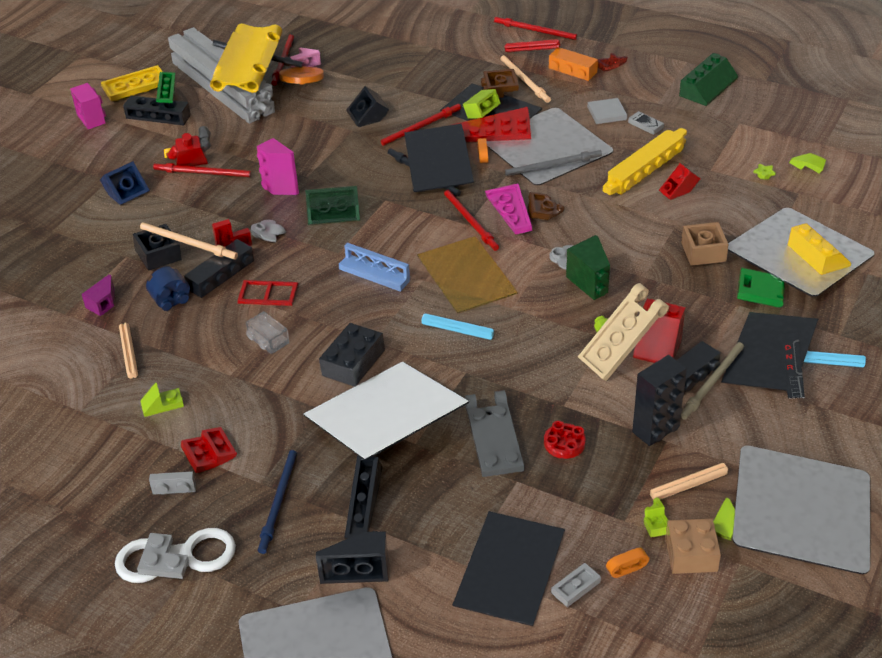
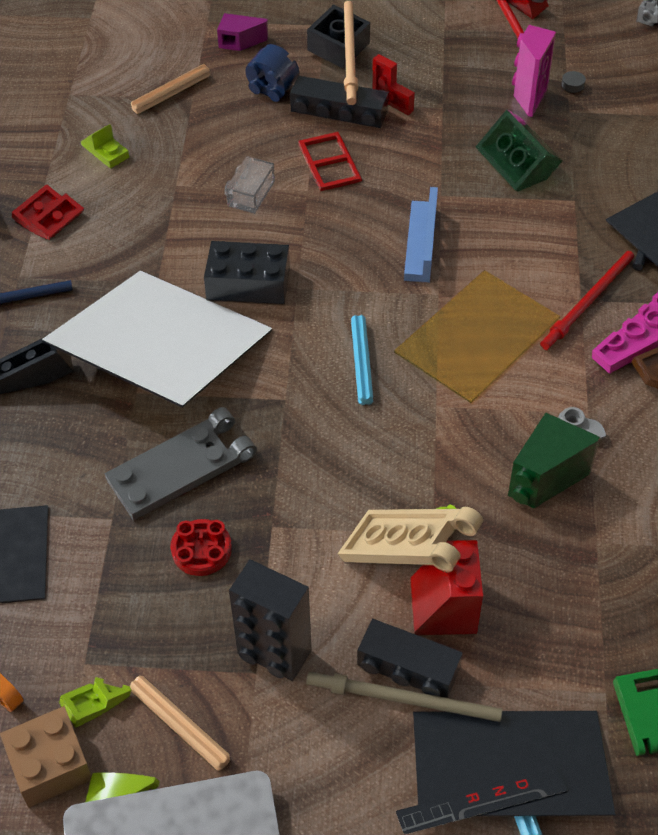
camera: 65 degrees right, 10 degrees up
(267, 230) = (437, 115): light grey plate -> none

